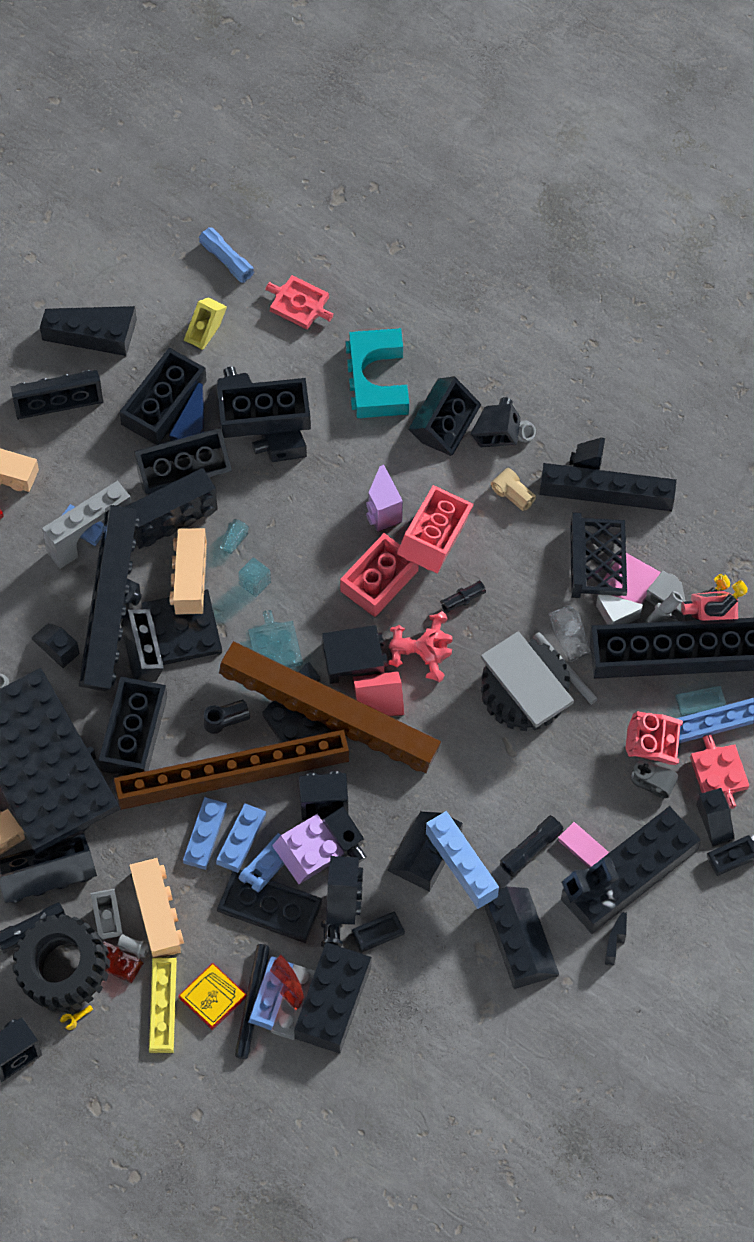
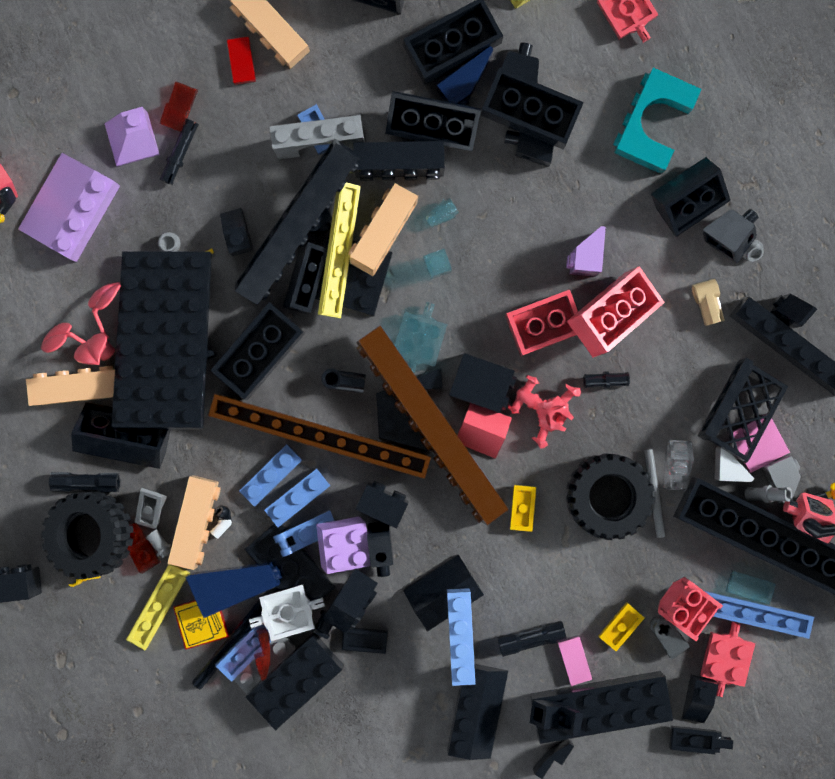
camera: 30 degrees right, 25 degrees up
(160, 608) = (338, 251): none -> light yellow tile
(183, 895) = (224, 521): none -> arm
(222, 942) = (229, 586): none -> dark blue slope
(291, 936) = (287, 612): none -> white plate
(454, 739) = (523, 508): none -> yellow plate
(527, 679) = (611, 502): light grey tile -> none
(606, 793) = (621, 626): none -> yellow plate

